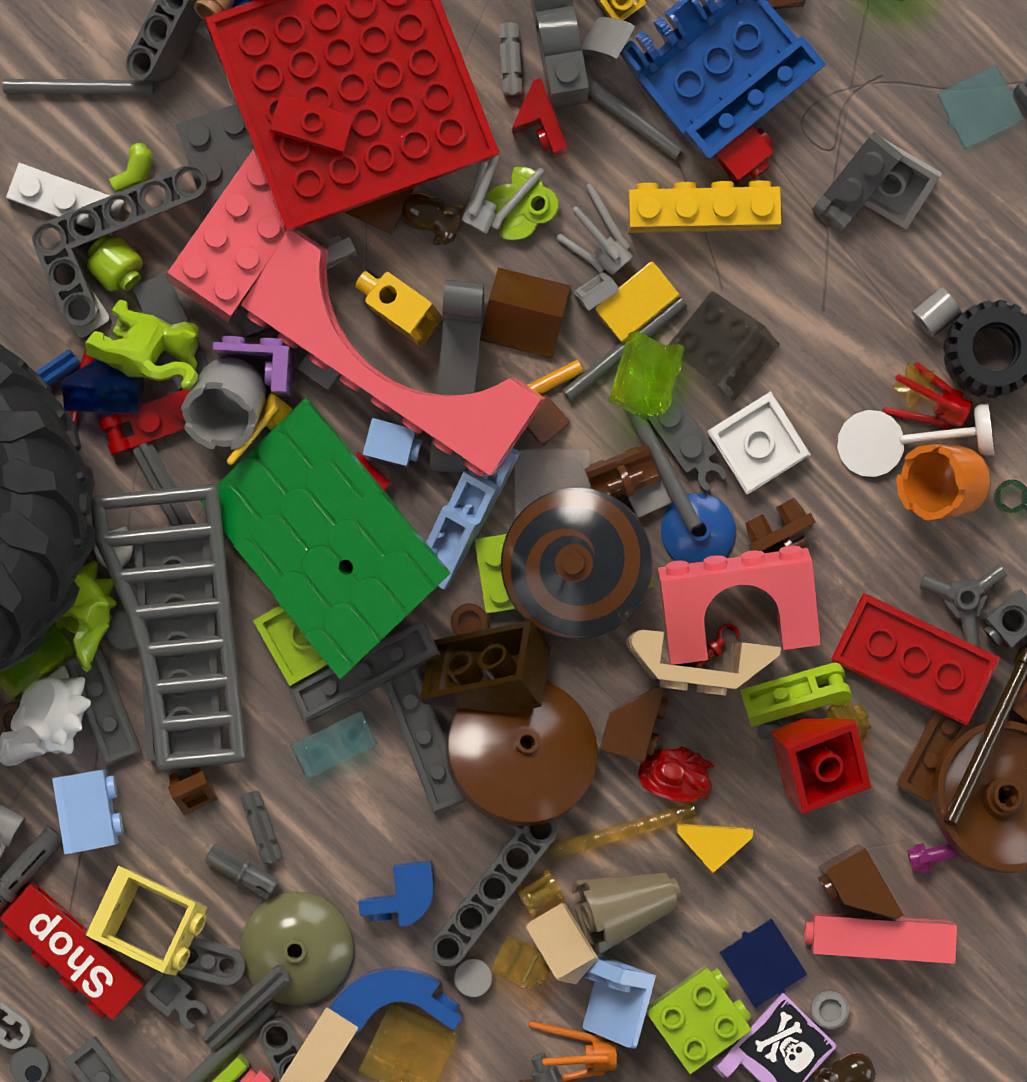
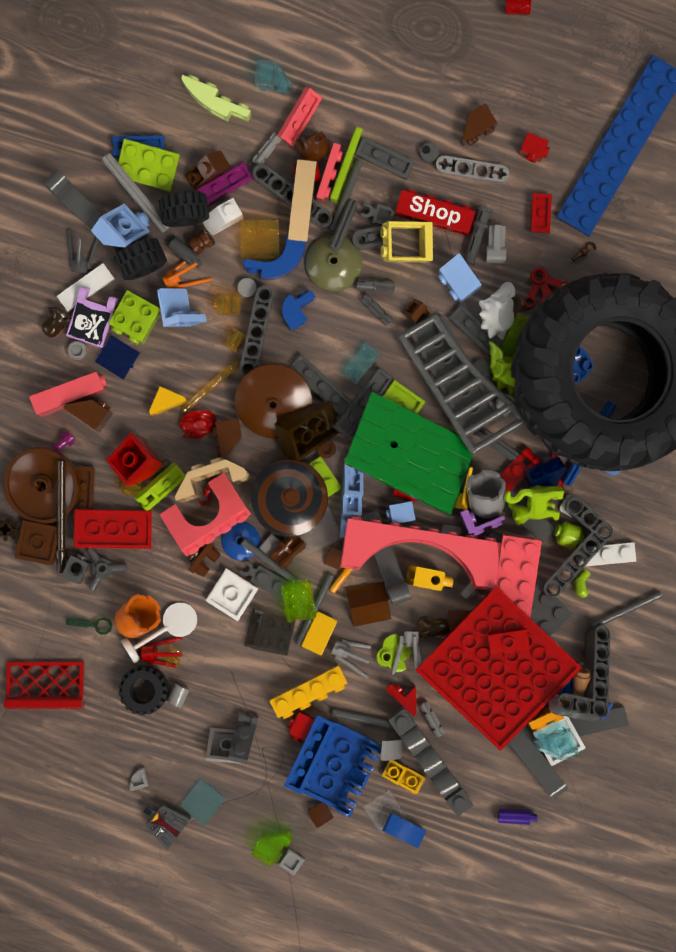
camera: 150 degrees right, 0 degrees up
(562, 944) = (213, 321): tan slope -> none
(596, 291) = (340, 629): light grey tile -> none
(622, 906) = (193, 352): dark tan cone -> none

